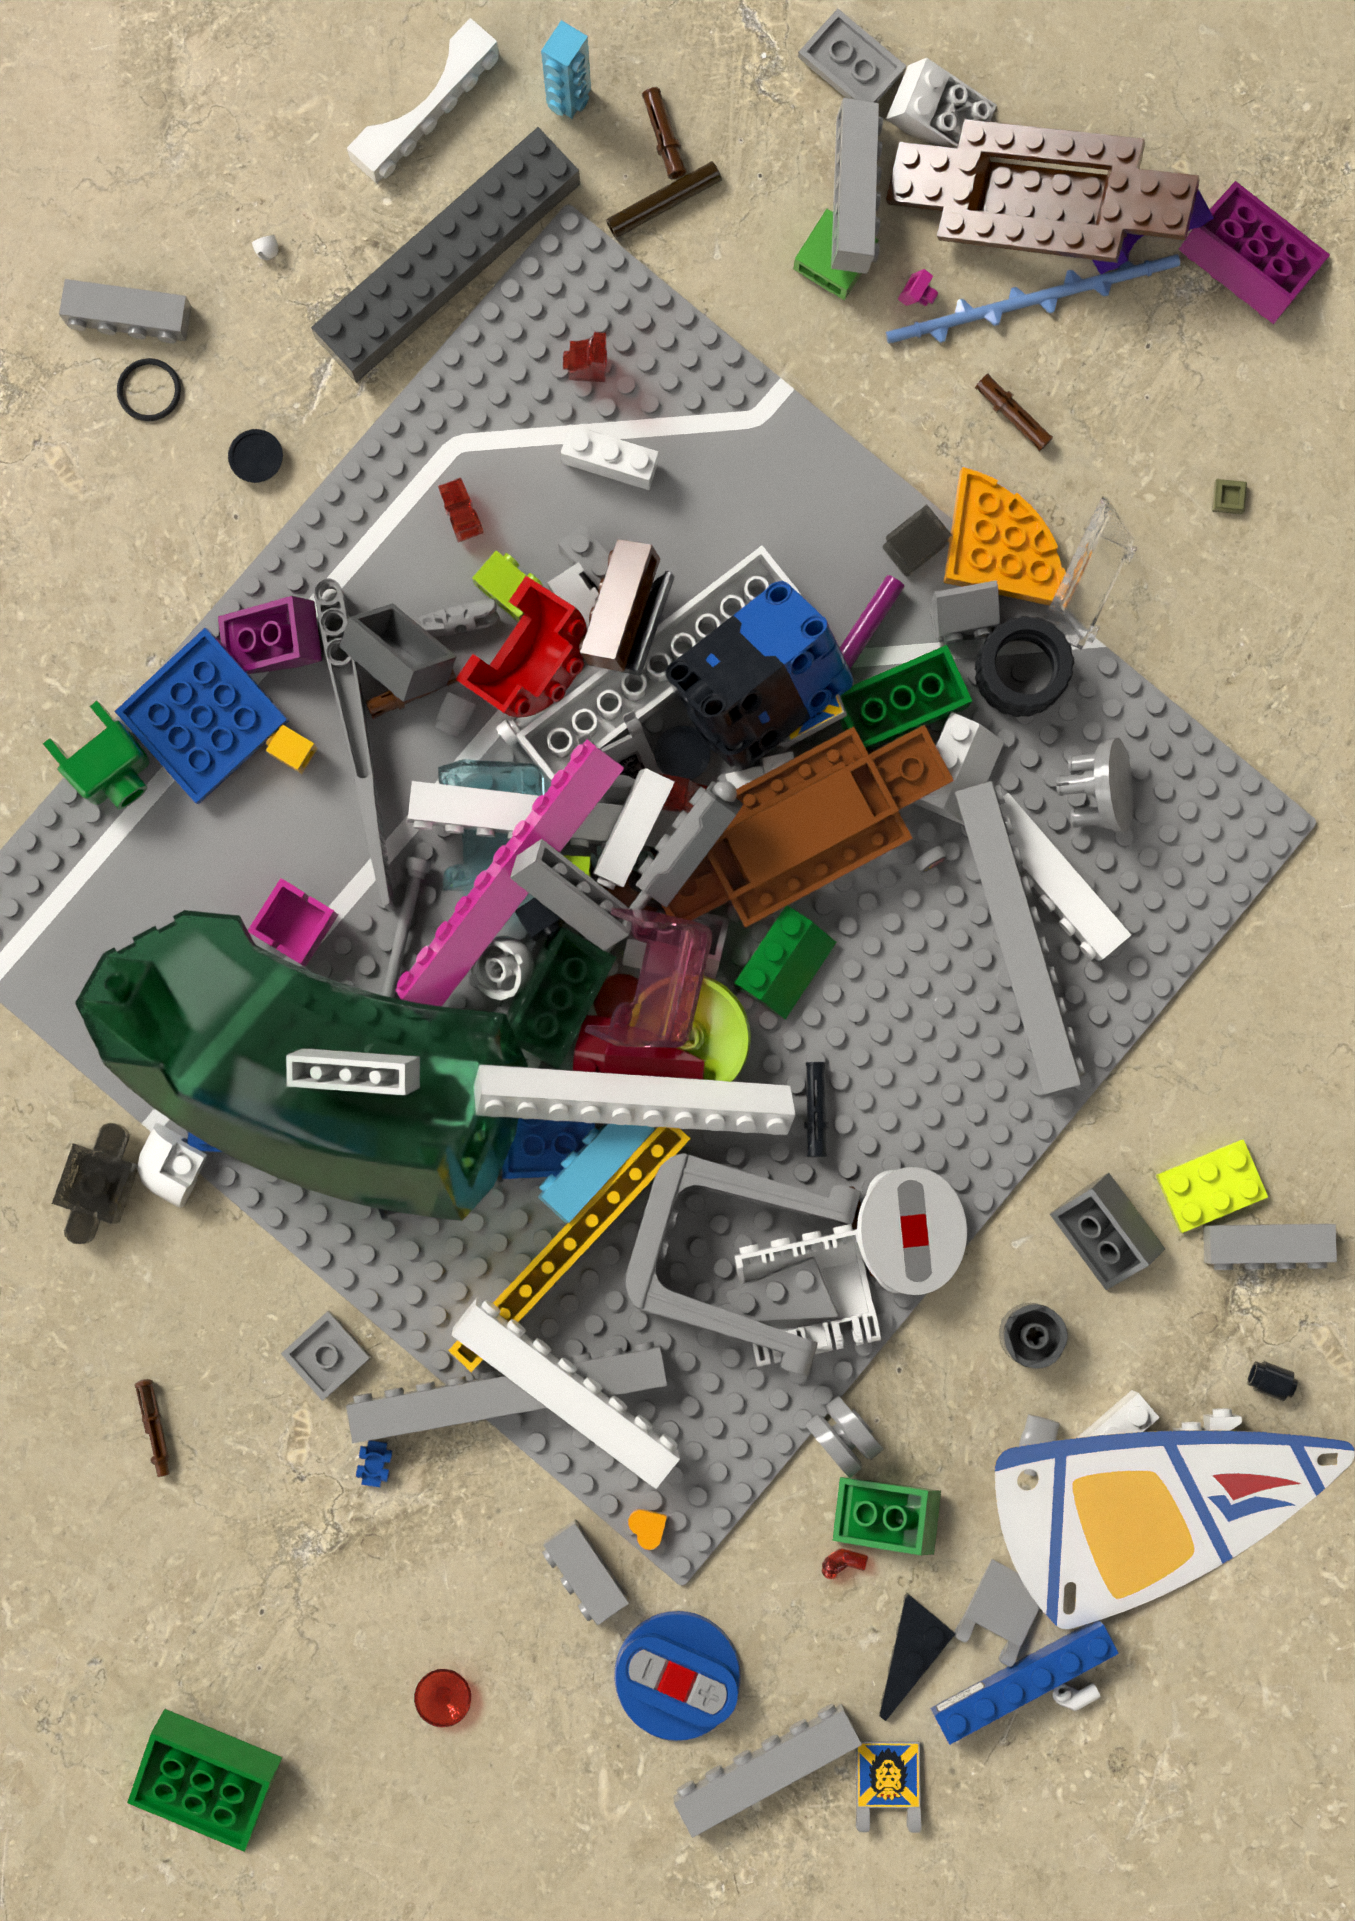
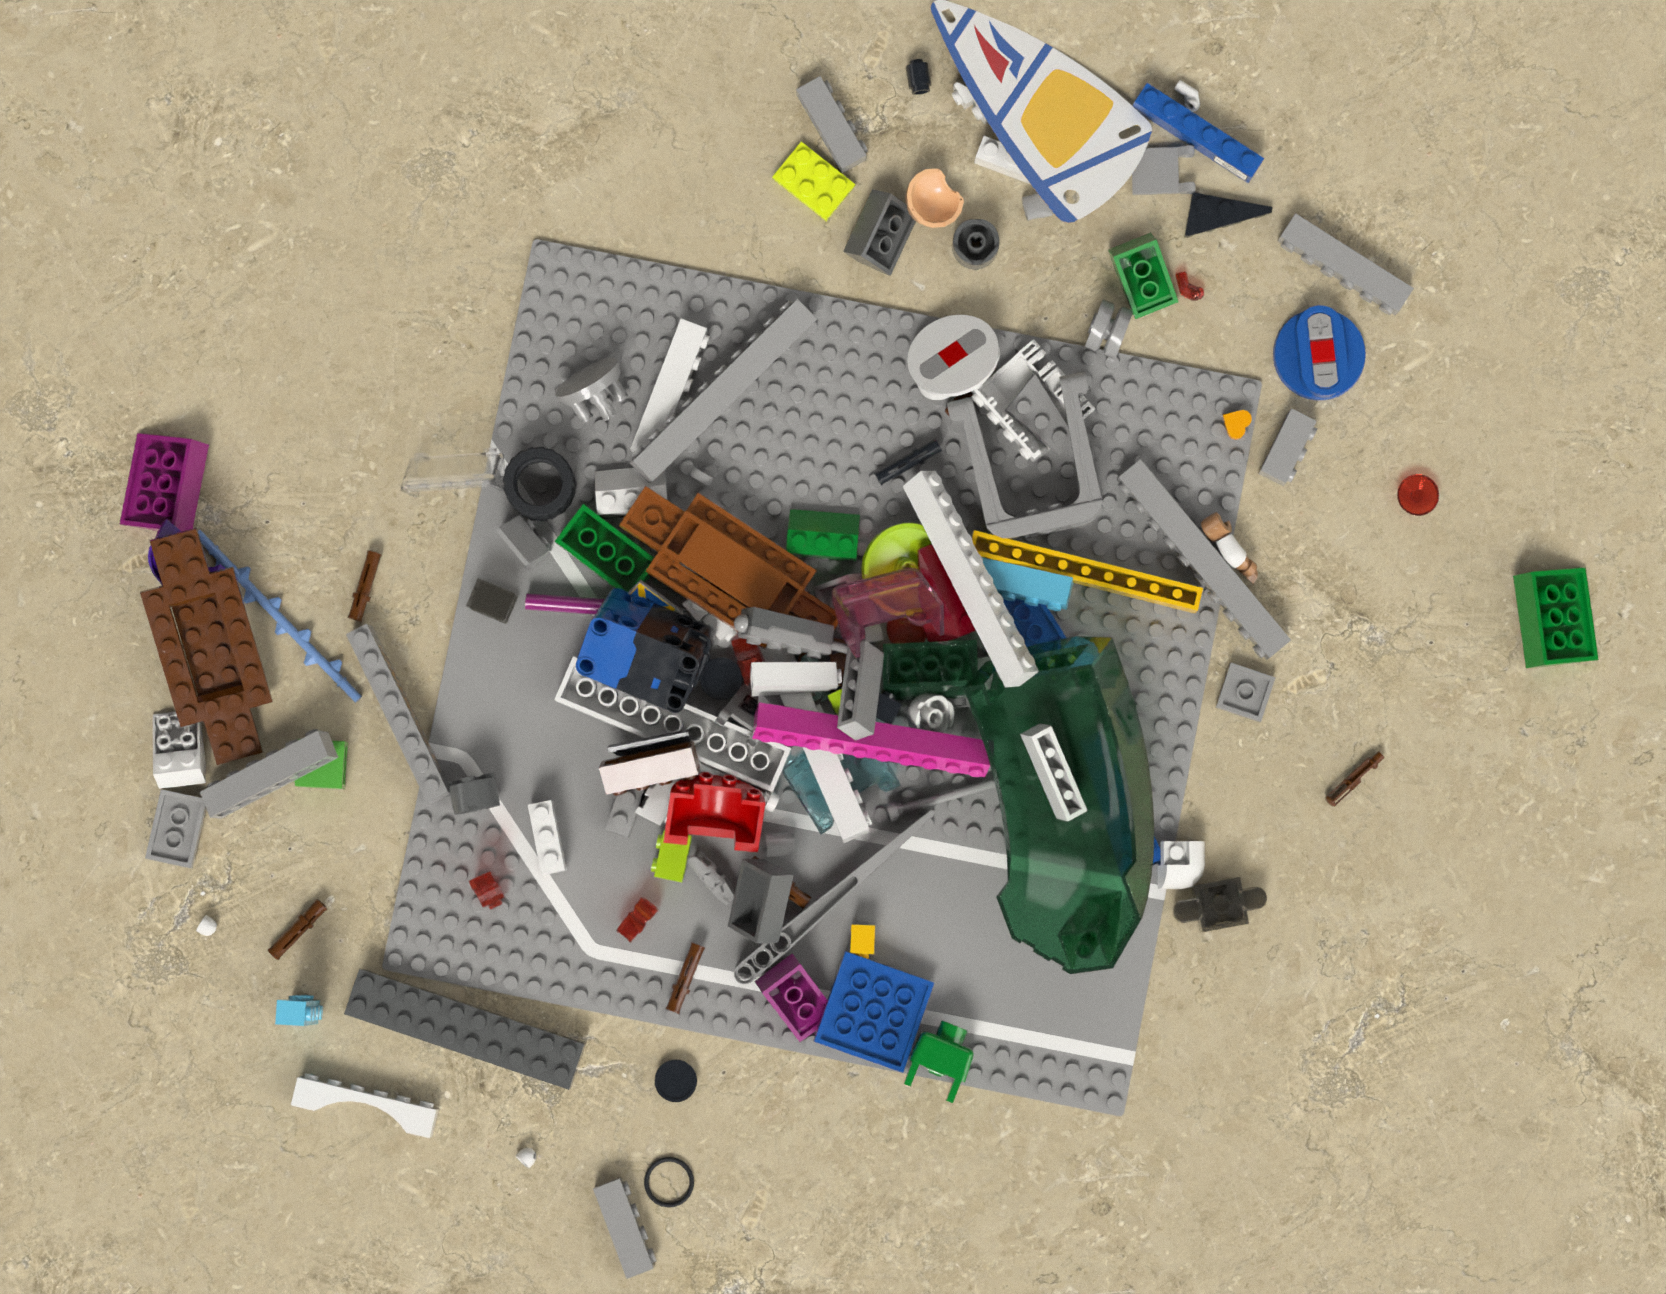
camera: 115 degrees left, 0 degrees up
(292, 923) = (977, 870): dark pink piece -> none
(355, 517) = (684, 979): none -> reddish brown pin
(375, 1458) = (1291, 624): blue piece -> none
(506, 1432) = (1228, 546): none -> piece
(566, 1392) = (1181, 519): white brick -> none
(664, 199) = (344, 903): dark brown piece -> none
(704, 399) = (474, 793): none -> dark grey brick
(723, 37) = (207, 926): none -> white hinge
(844, 369) = (399, 713): none -> light grey brick
(888, 1779) = (1307, 186): flag -> none
(918, 290) = (314, 696): dark pink tile -> none
(1002, 541) = (461, 545): light orange plate -> none
(1114, 1312) = (932, 200): none -> light nougat cylinder
(1229, 496) = (343, 412): olive tile -> none

